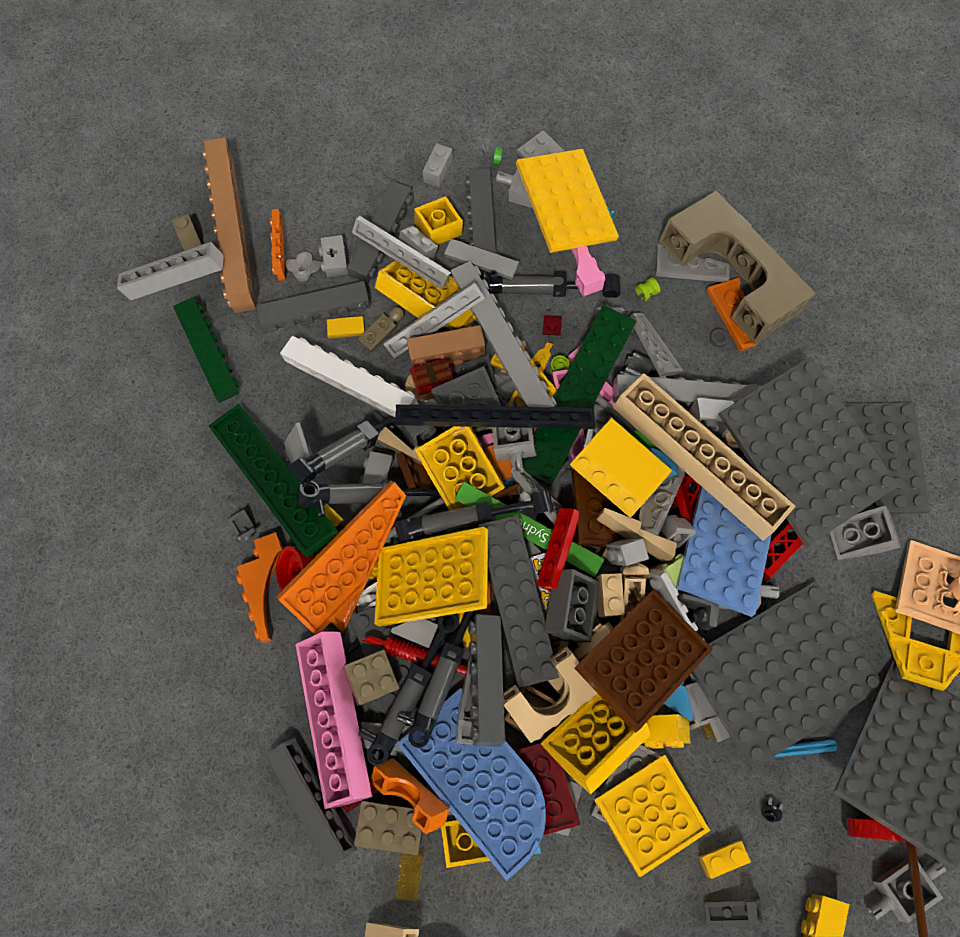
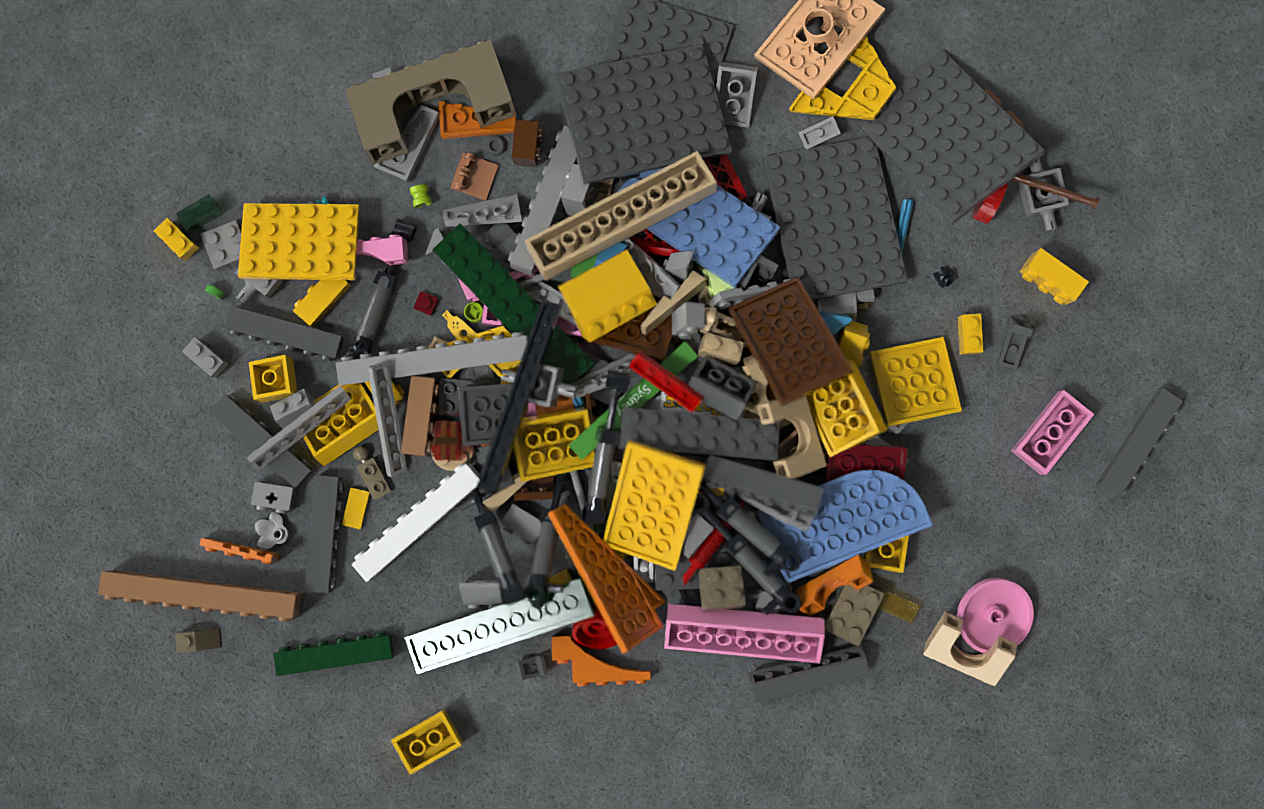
camera: 70 degrees left, 15 degrees up
(146, 453) = (427, 741): none -> yellow brick
(170, 271) = (240, 668): light grey brick -> none
(483, 259) = (334, 349): light grey tile -> none
(522, 238) = (320, 300): none -> yellow brick
(531, 112) = (176, 239): none -> yellow brick
(560, 123) = (199, 213): none -> clear green brick
(684, 328) = (474, 176): none -> nougat hinge
(733, 359) = (526, 143): none -> reddish brown brick
(864, 629) = (819, 133): none -> light grey plate

